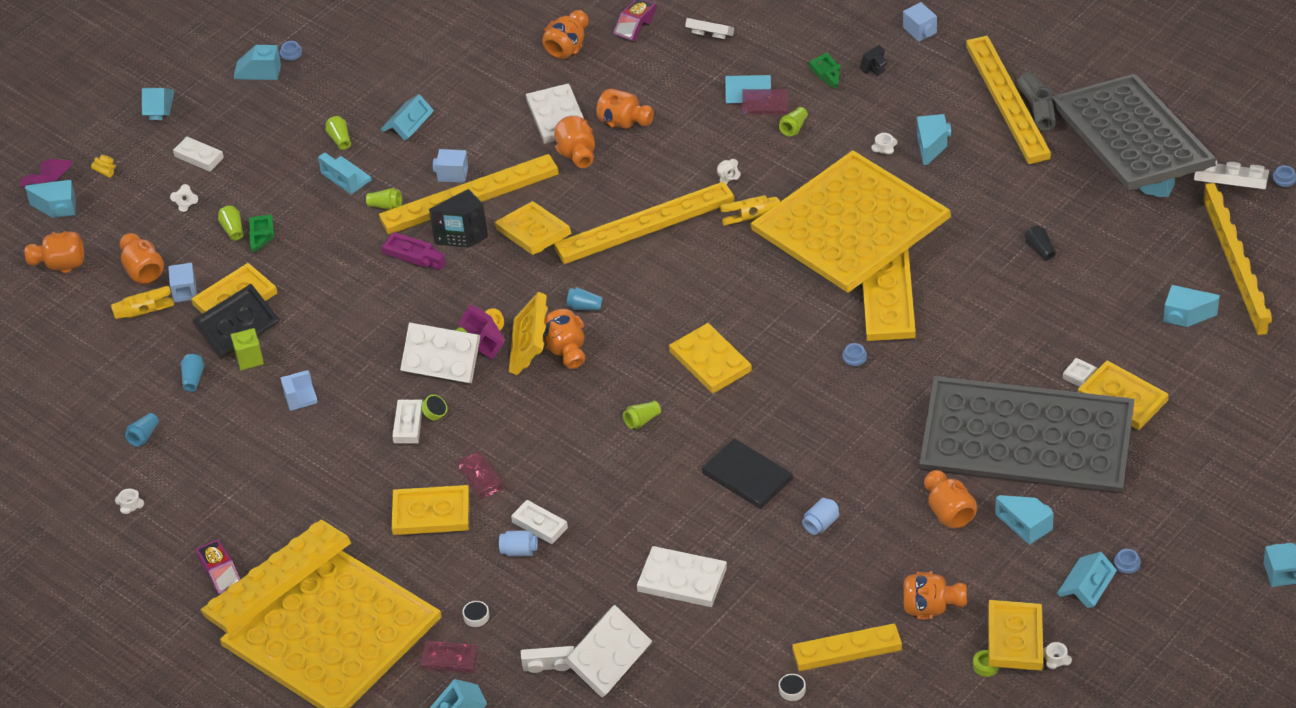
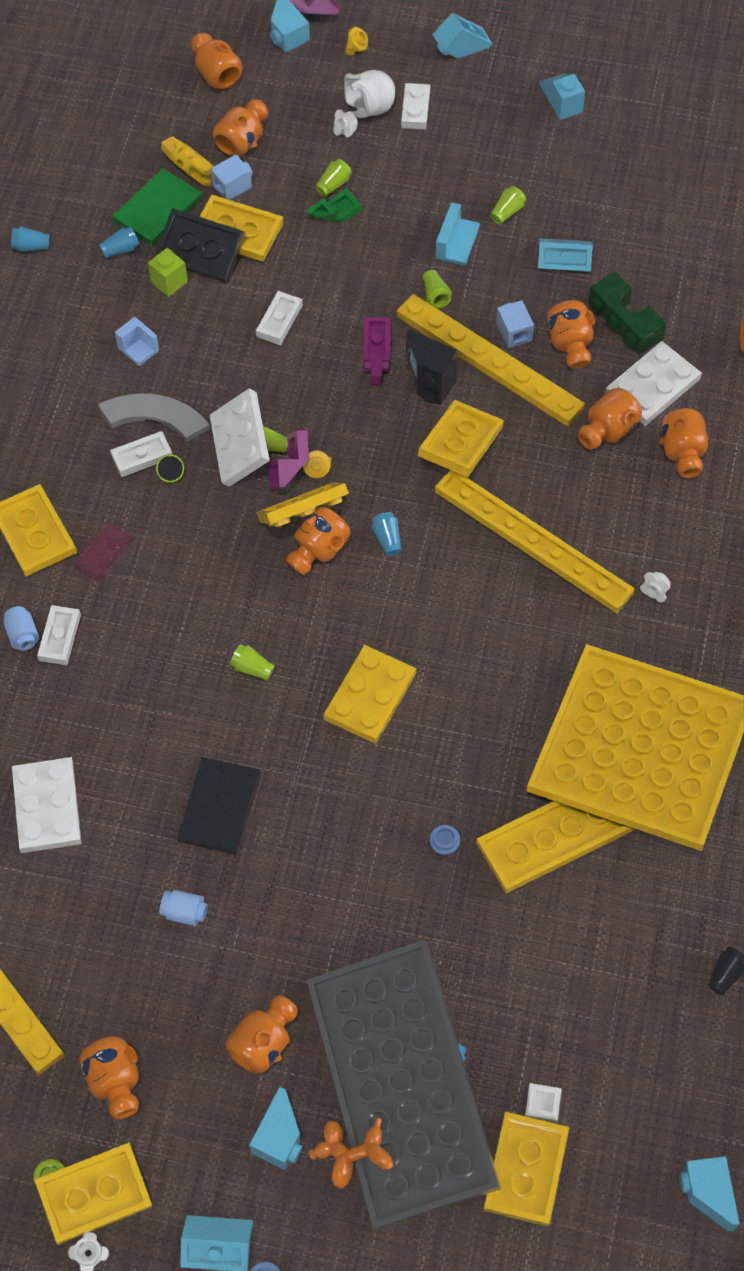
camera: 60 degrees right, 15 degrees up
(170, 170) = (369, 92): none -> white hair
(170, 339) = (152, 204): none -> green tile
(290, 50) = (601, 109): medium blue plate -> none
(341, 298) = (279, 318): none -> white plate
(367, 402) = (168, 411): none -> light grey tile
(483, 135) = (571, 331): none -> orange piece
(503, 104) = (638, 329): none -> dark green arch
(759, 206) = (609, 632): yellow hinge -> none
(1067, 463) = (343, 1166): none -> orange piece

